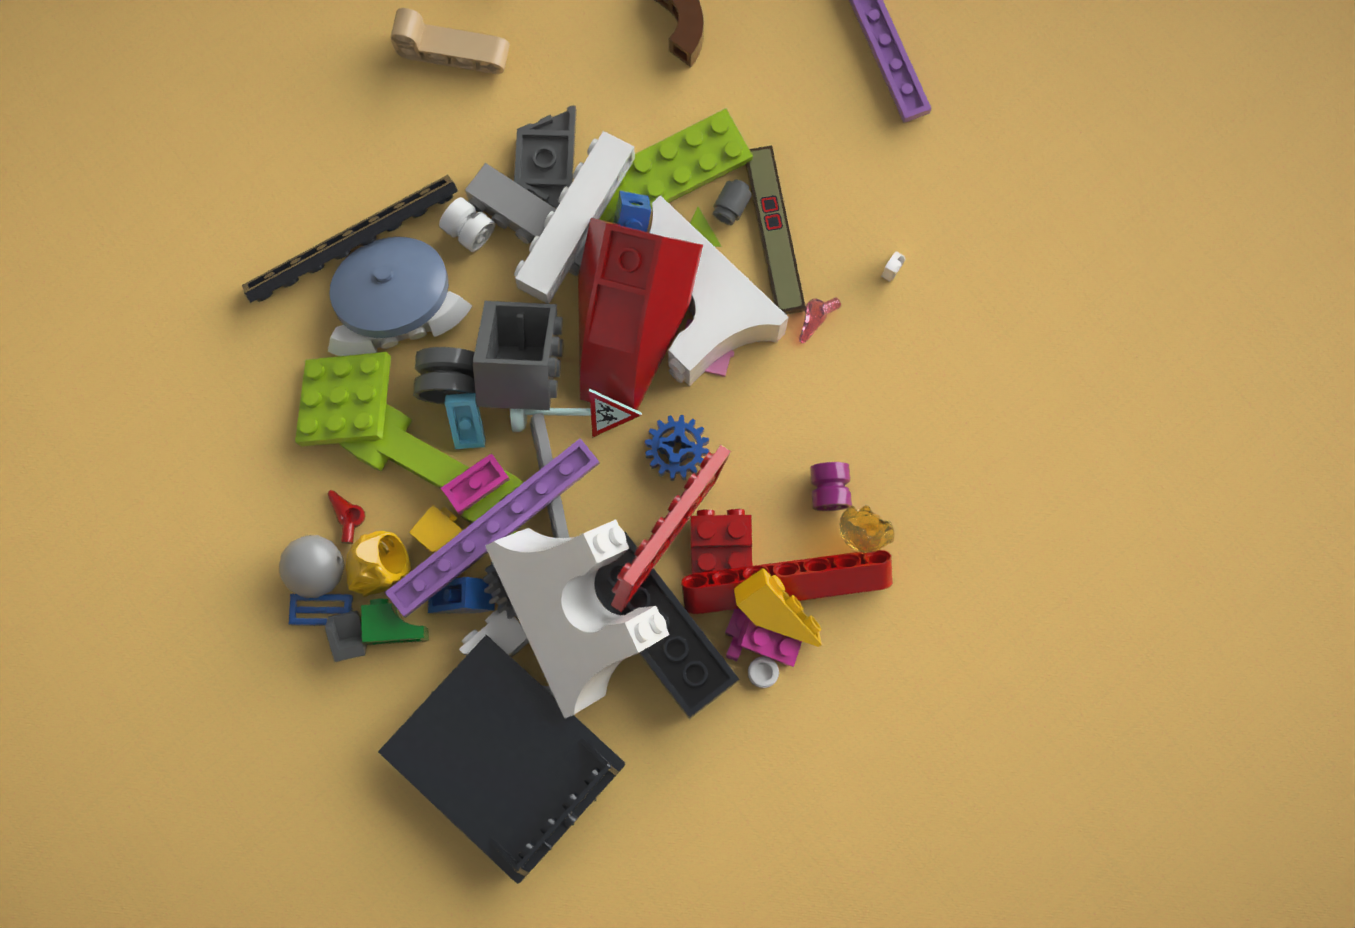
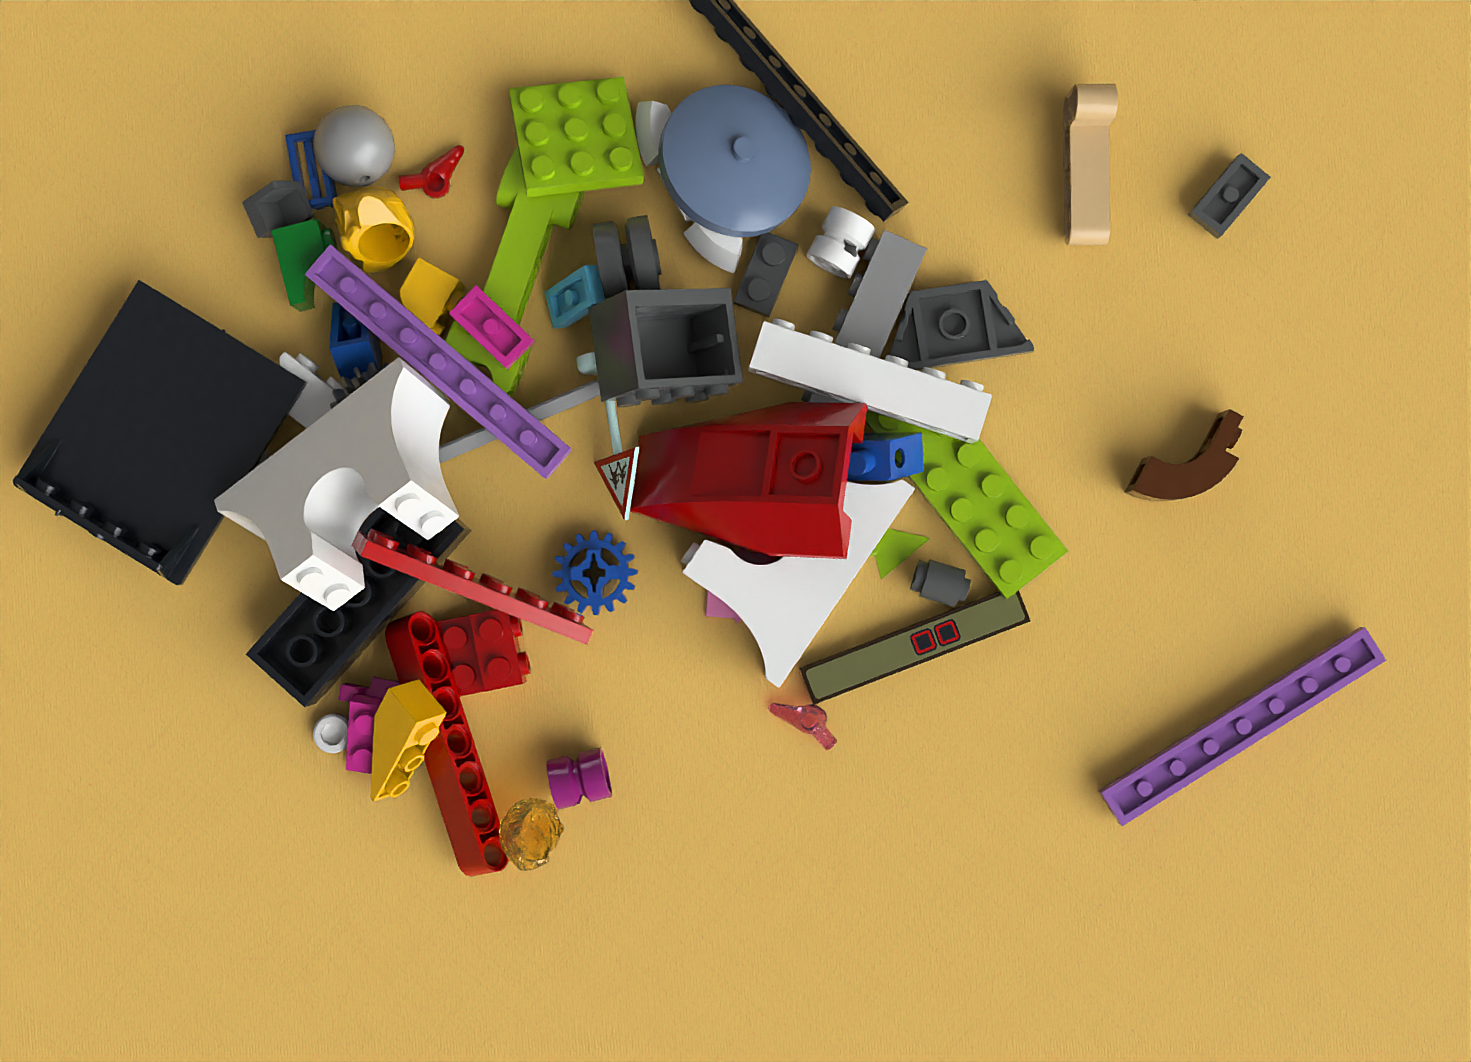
camera: 80 degrees right, 10 degrees up
(476, 283) = (765, 274): none -> dark grey plate
(893, 266) = (893, 810): white tile -> none

